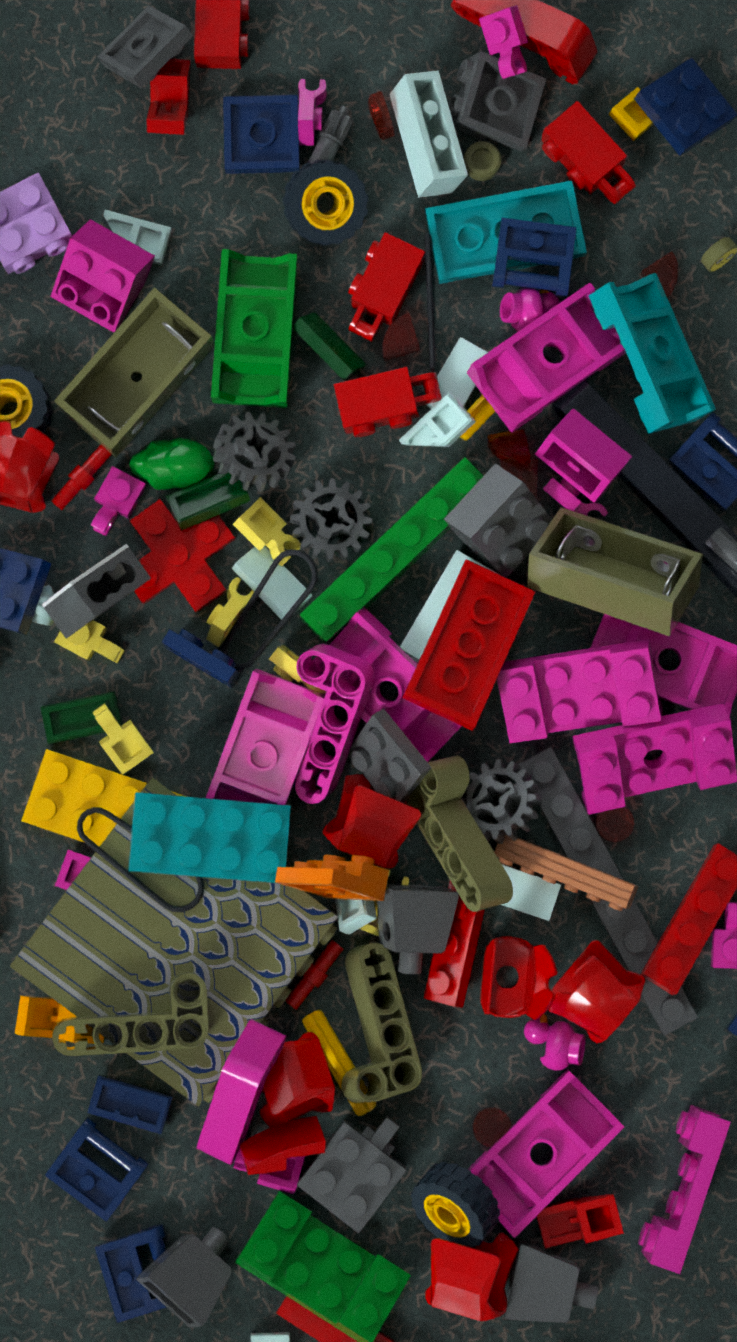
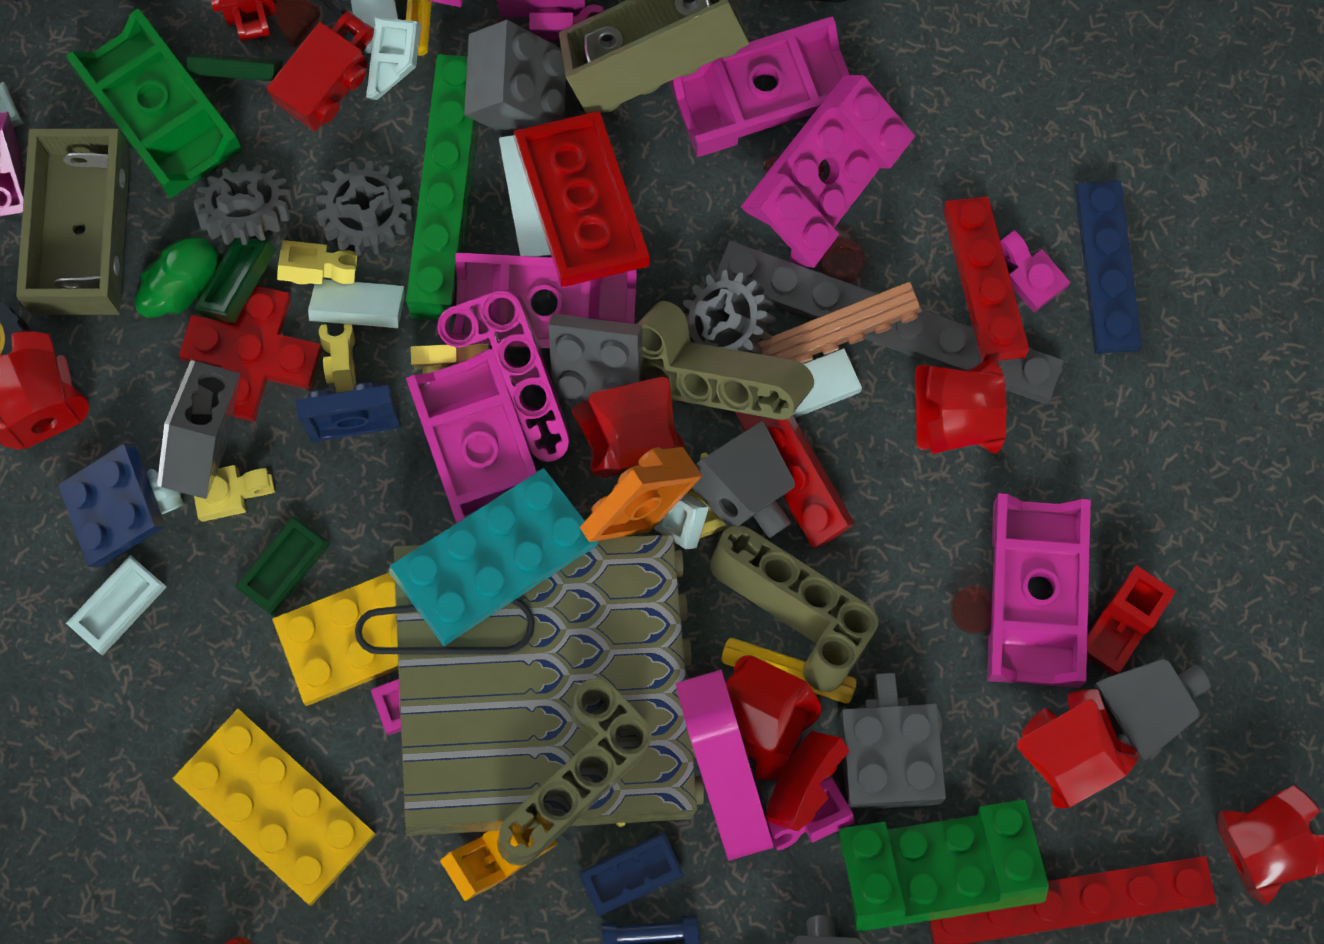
camera: 45 degrees left, 10 degrees down
(81, 477) = (101, 356): red bar -> none
(118, 496) = (149, 346): dark pink plate -> none
(123, 742) = (340, 551): light yellow plate -> none
(289, 614) = (396, 312): black piece -> none
(314, 975) = (697, 611): red bar -> none
(455, 1204) = (1006, 695): black wheel -> none
(510, 447) = (466, 22): clear red tile -> none
(531, 991) = (889, 441): red piece -> none
(562, 1042) = (971, 481): dark pink animal -> none
(579, 690) = (713, 164): dark pink piece -> none
(668, 1241) = (1168, 450): dark pink piece -> none

